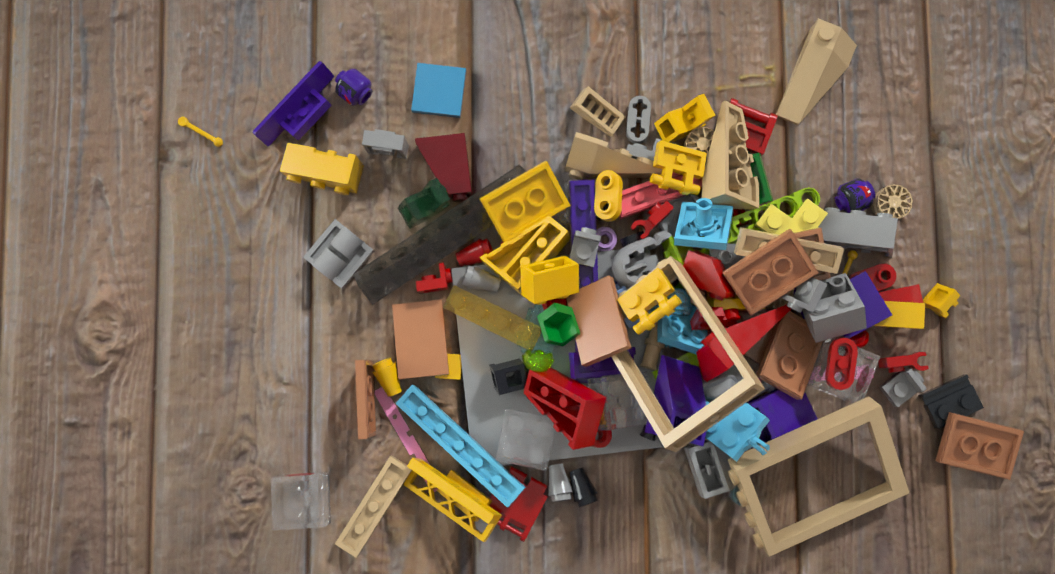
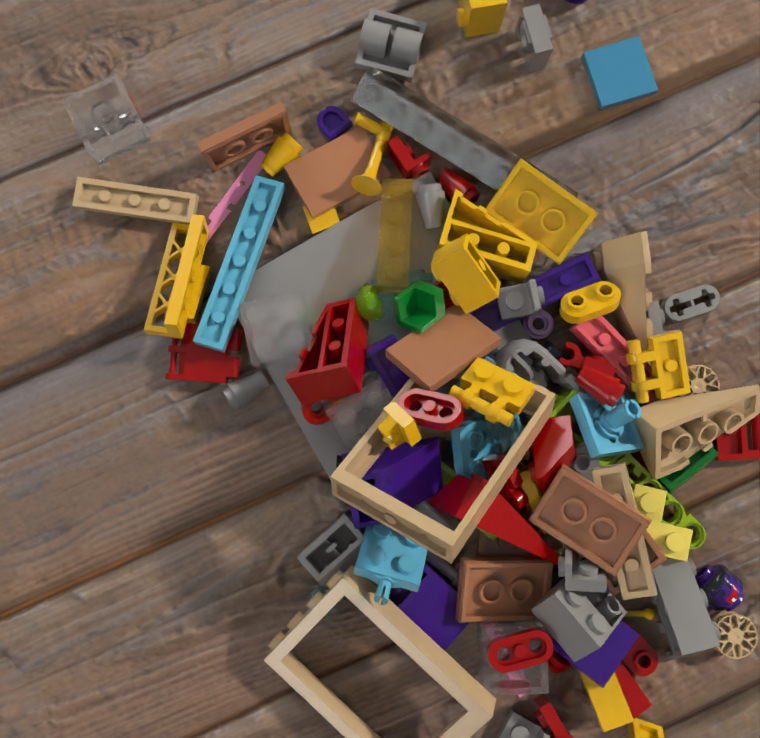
camera: 60 degrees right, 0 degrees up
(379, 325) = (333, 122): none -> dark purple tile
(424, 204) = (486, 110): clear green brick -> none
(441, 319) = (367, 182): none -> yellow piece
(448, 162) = (544, 116): dark red slope -> none
(509, 384) = (328, 281): black brick -> none
(583, 489) = (251, 418): black cone -> none
(602, 104) = (669, 241): tan slope -> none
(645, 351) = (433, 409): none -> red plate
(647, 382) = (398, 427): none -> yellow tile
(675, 218) = (600, 386): none -> red cone
(682, 121) = (709, 348): yellow brick -> none

